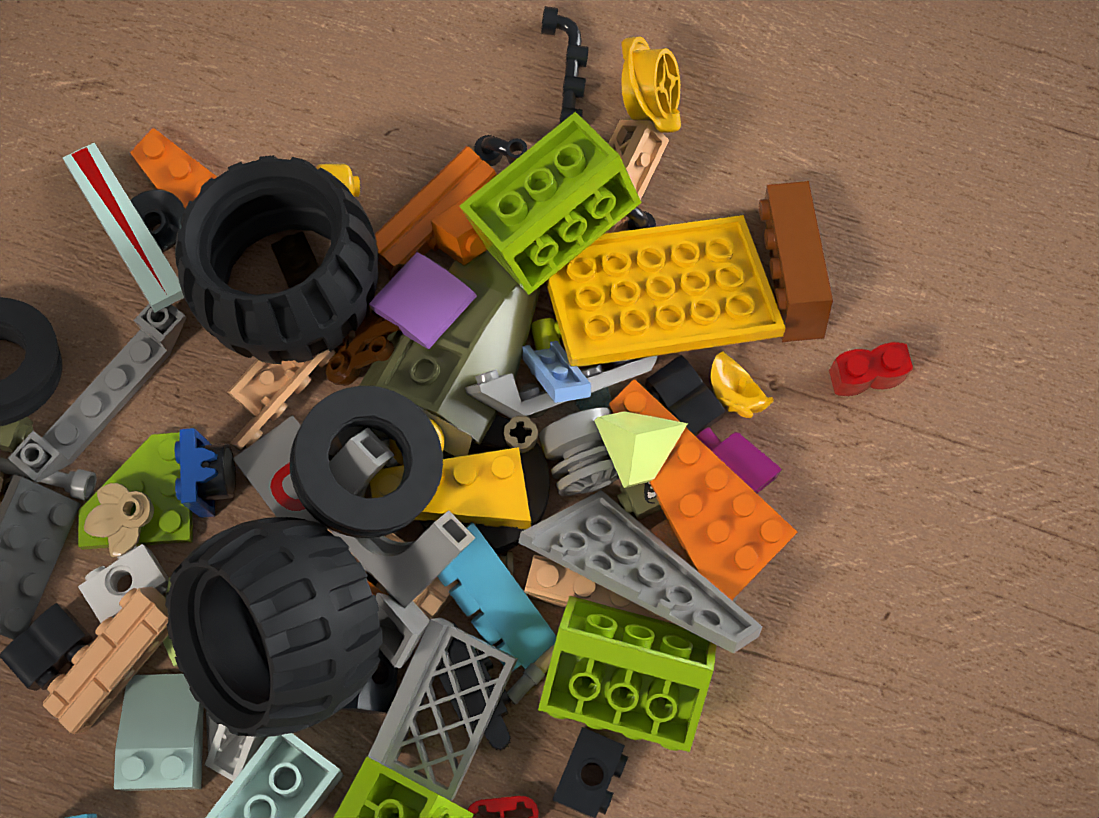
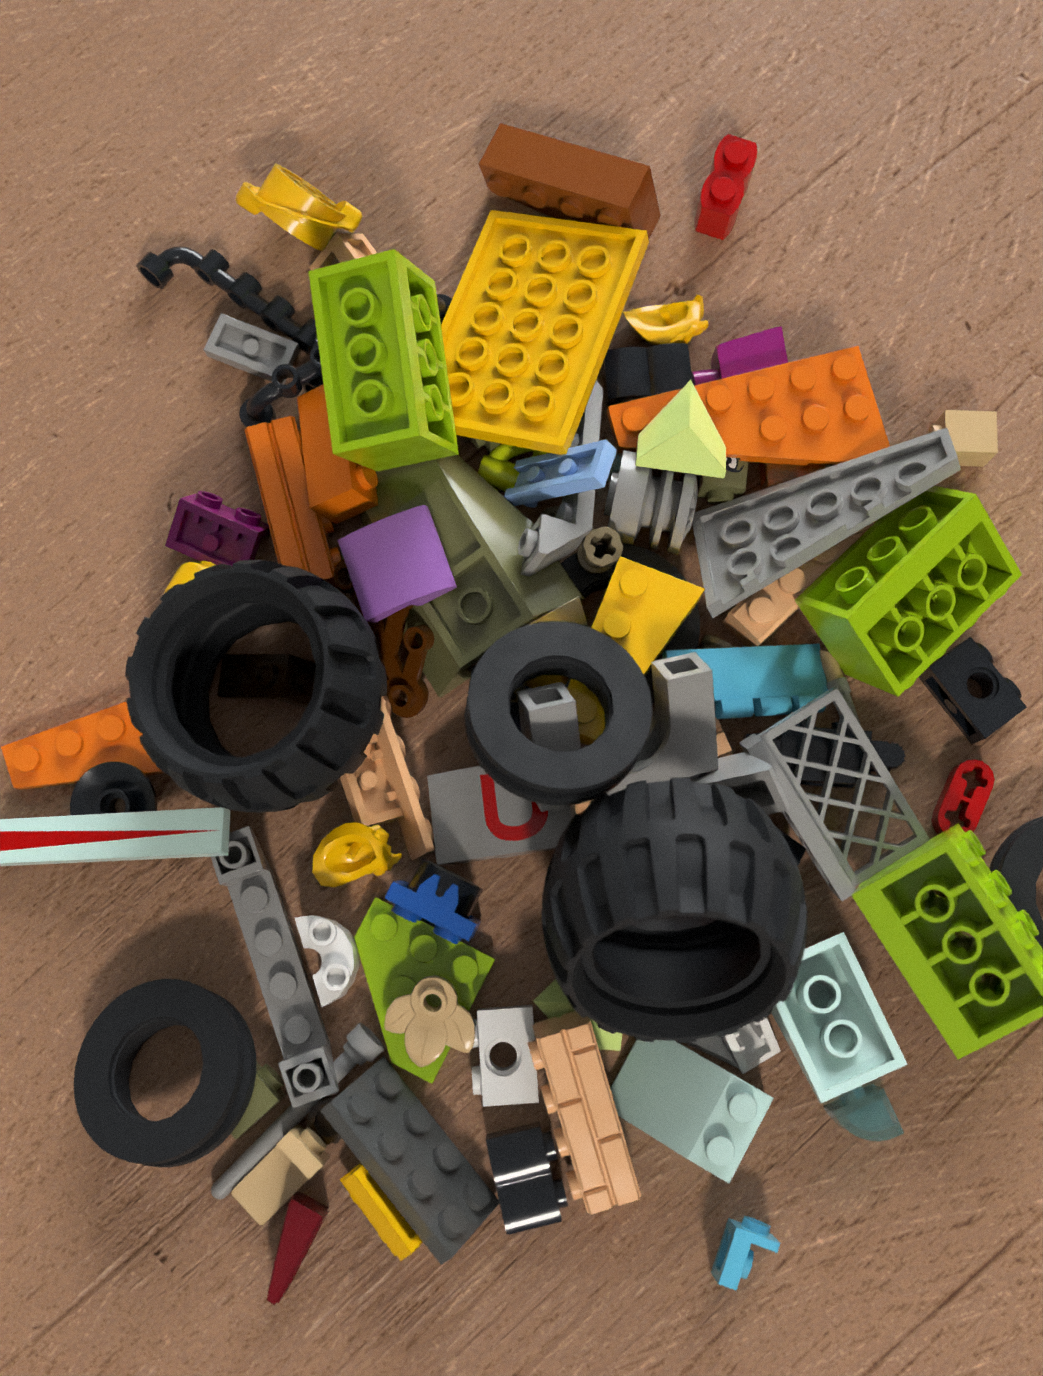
camera: 60 degrees left, 5 degrees up
(131, 428) = (337, 952): none -> white cylinder
(208, 397) = (352, 853): none -> yellow hat
(384, 173) = (214, 531): none -> magenta bracket
(531, 112) = (249, 347): none -> light grey plate
(785, 657) = (971, 434): none -> tan brick

